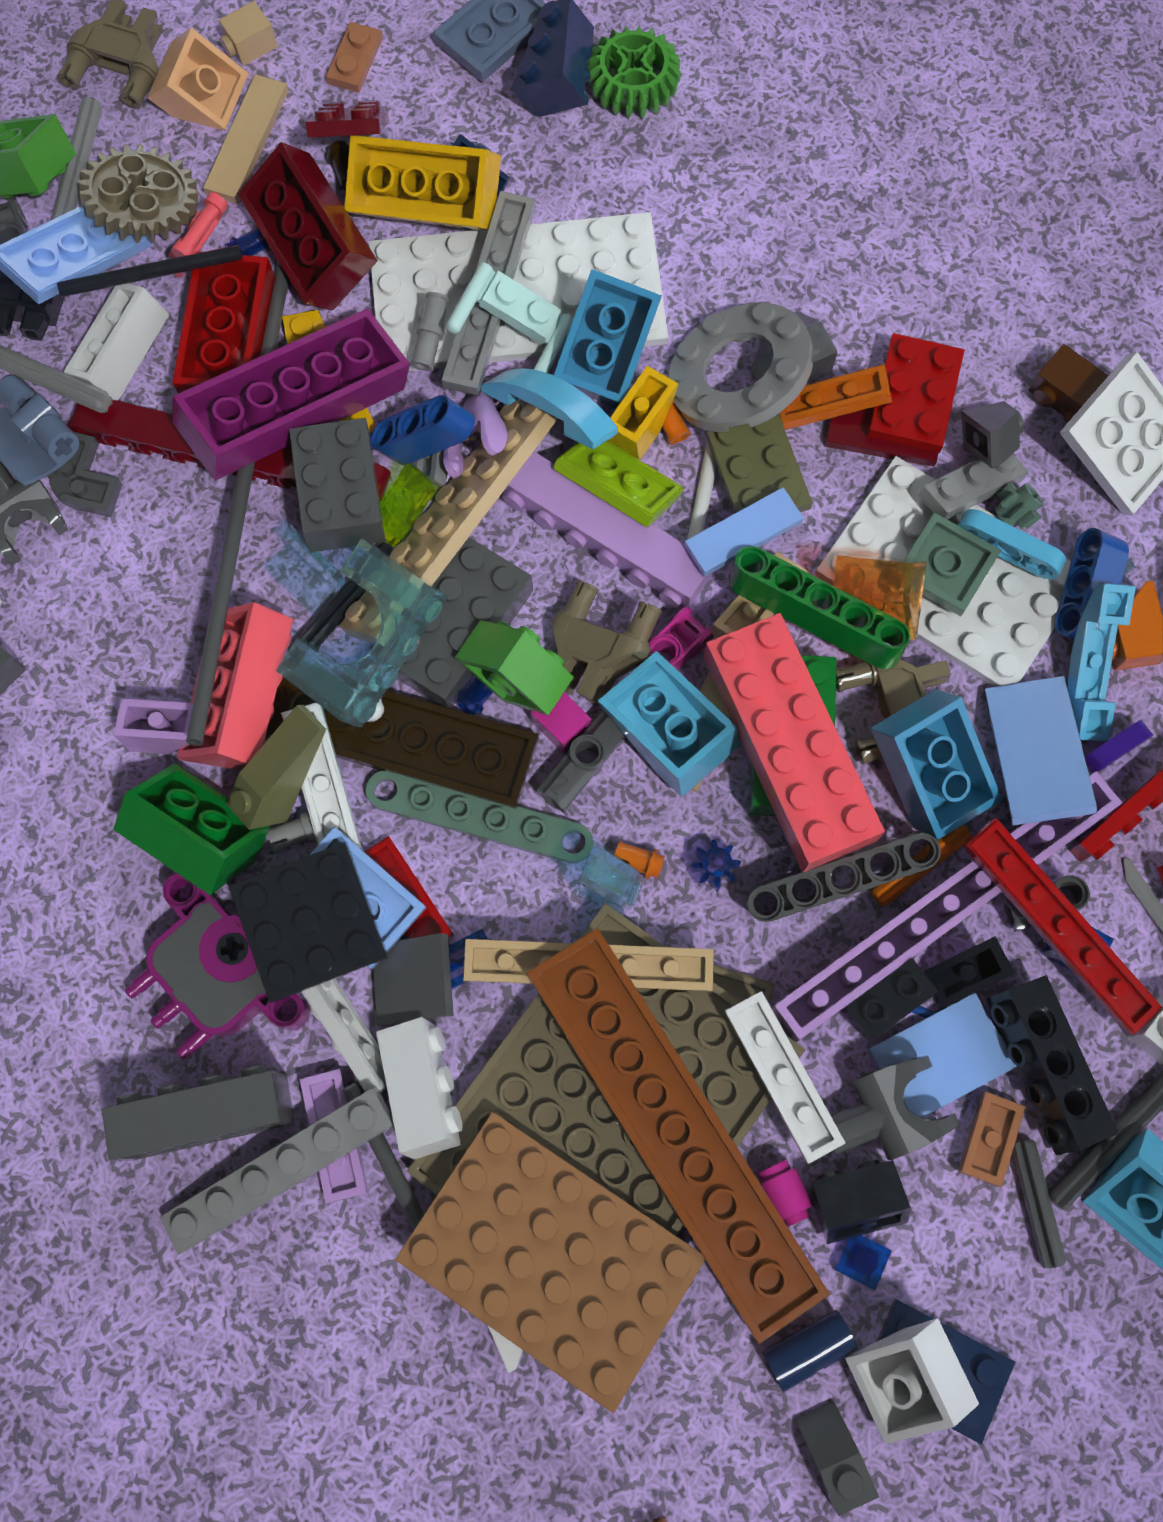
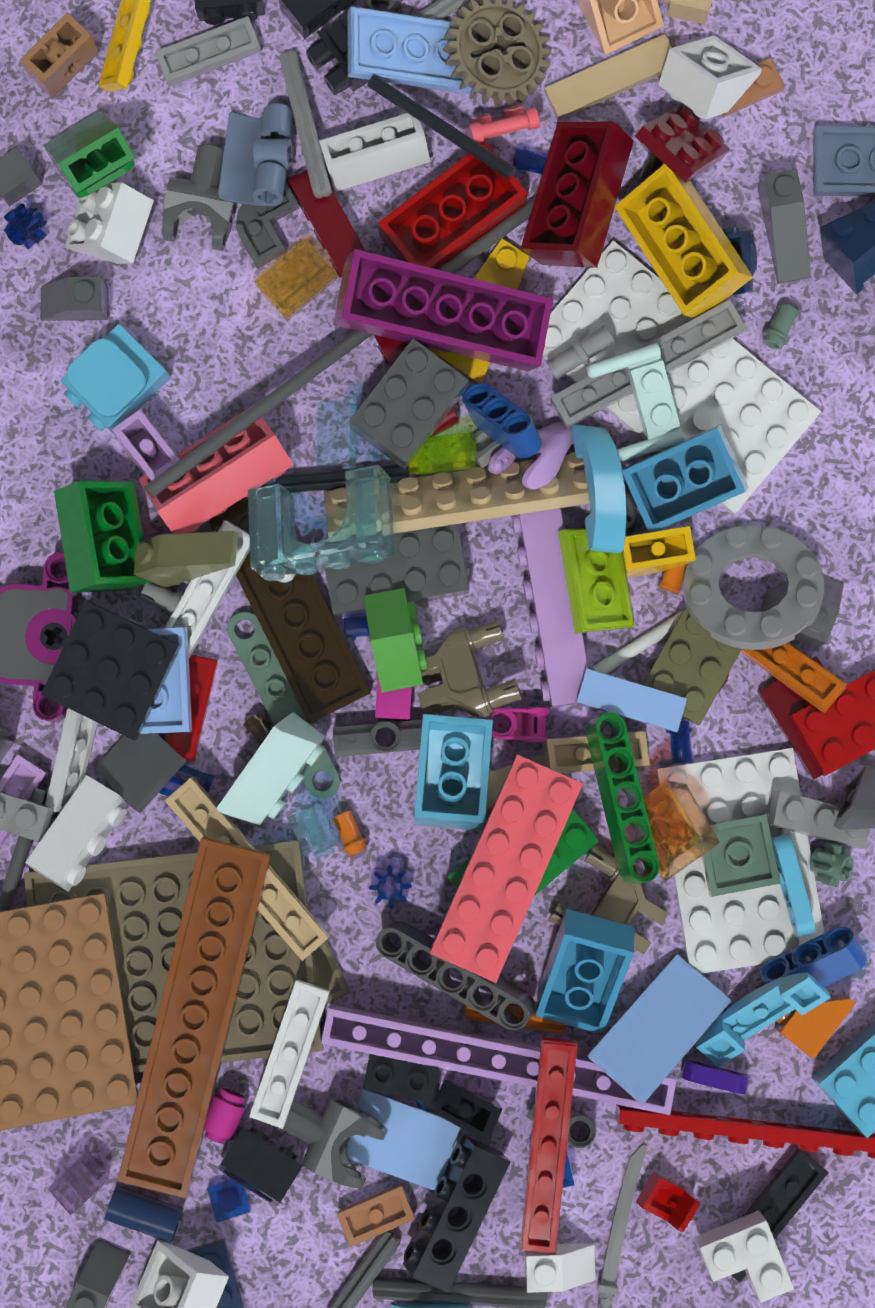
camera: 45 degrees right, 10 degrees up
(75, 704) = (113, 379): none -> medium azure brick
(150, 494) = (296, 279): none -> clear yellow plate
(317, 69) = (707, 76): none -> white slope
(482, 113) = (785, 224): none -> dark grey slope
(483, 854) = (257, 727): none -> dark brown pin
(528, 867) = (273, 771): none -> light aqua slope
(557, 185) = (777, 334): none -> sand green pin
(728, 1385) = (79, 1183): none -> clear purple brick
(809, 532) = (682, 741): none -> clear blue pin

